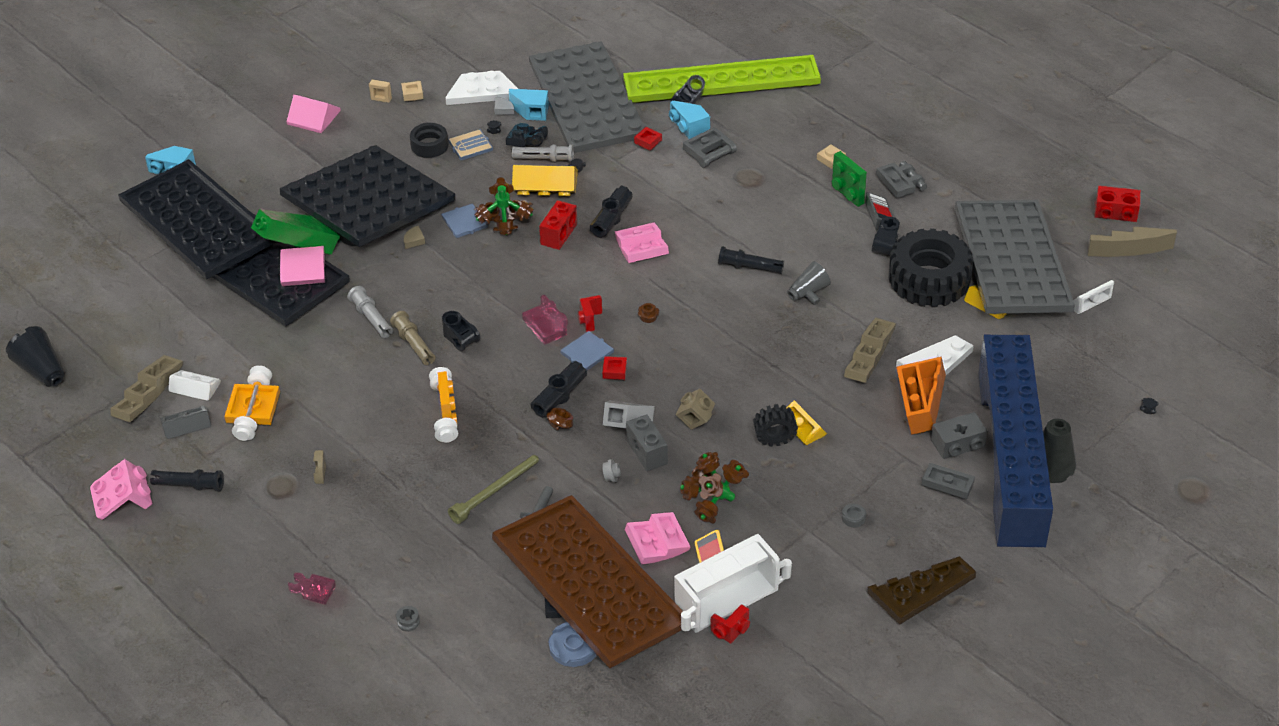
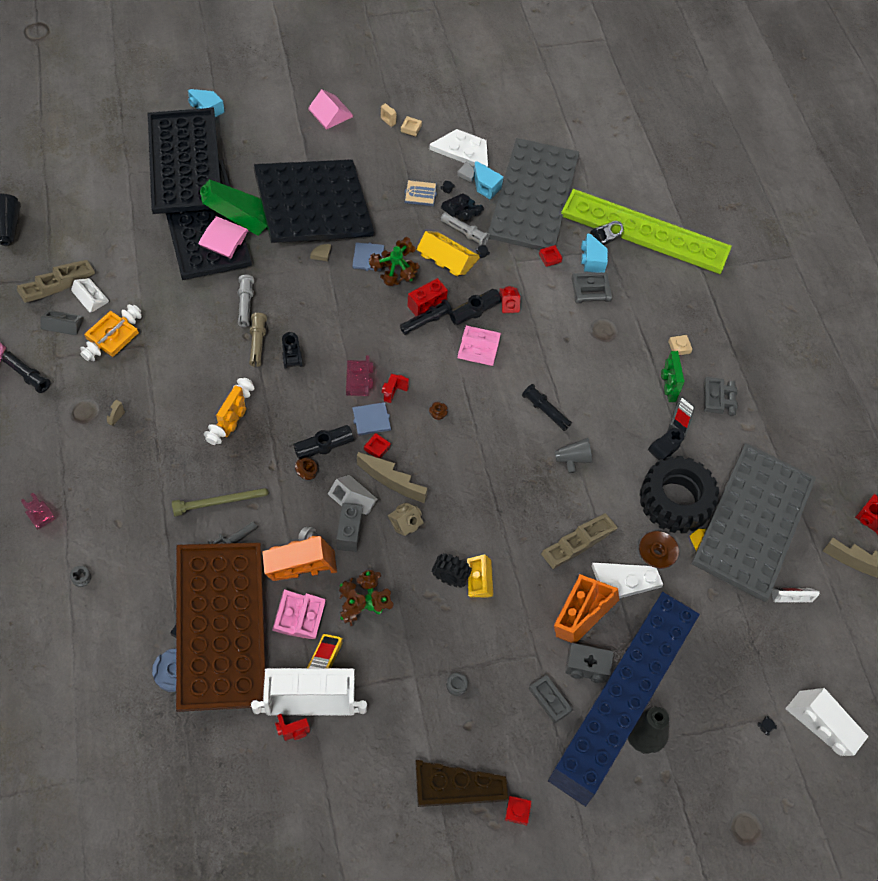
camera: 25 degrees right, 15 degrees up
(431, 149) = (391, 165): black tyre -> none
(573, 236) = (433, 313): none -> black pin
(620, 489) = (298, 558): none -> wedge
(641, 190) = (510, 299): none -> red bracket
(650, 386) = (385, 473): none -> dark tan slope
(947, 320) = (659, 542): none -> reddish brown dish
(991, 579) = (518, 810): none -> red plate
(1195, 372) = (827, 720): none -> white wedge

